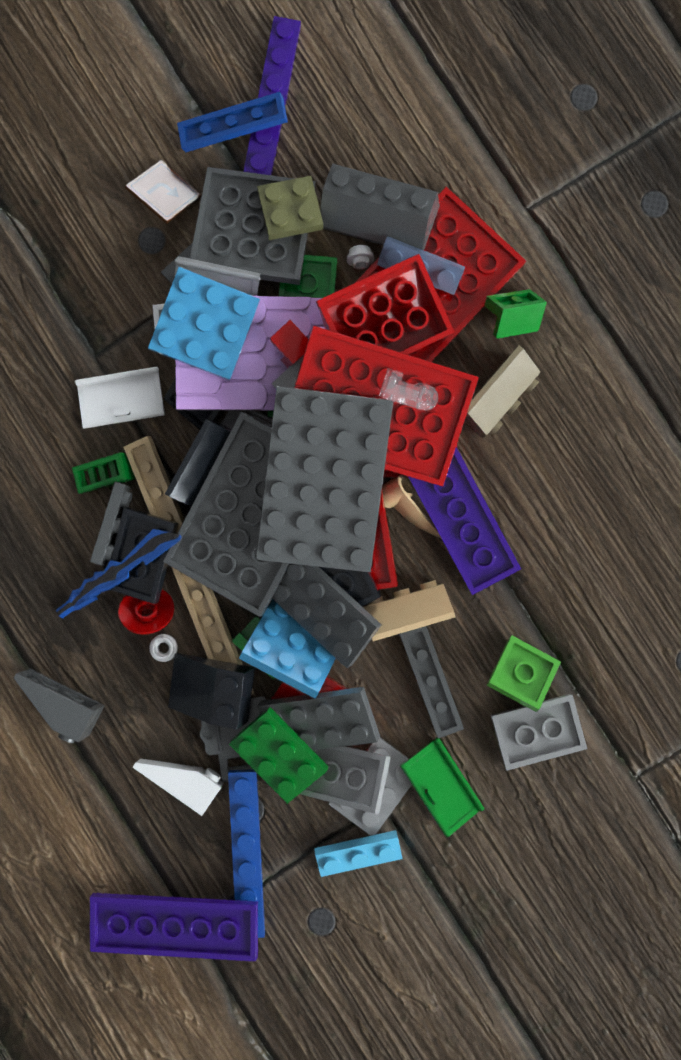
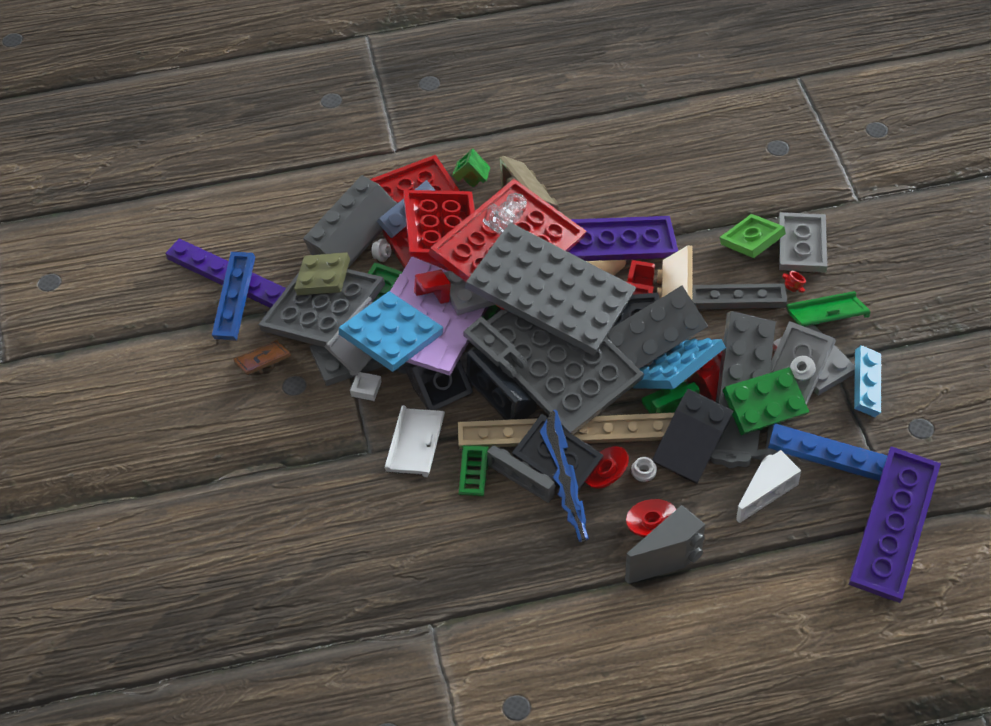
camera: 75 degrees left, 35 degrees down
(99, 662) = (648, 515): none -> red dish
(225, 444) = (494, 346): none -> dark grey hinge
(338, 785) = (808, 372): none -> white plate
(414, 565) = (641, 273): none -> red panel
(473, 738) = (794, 281): none -> red plate

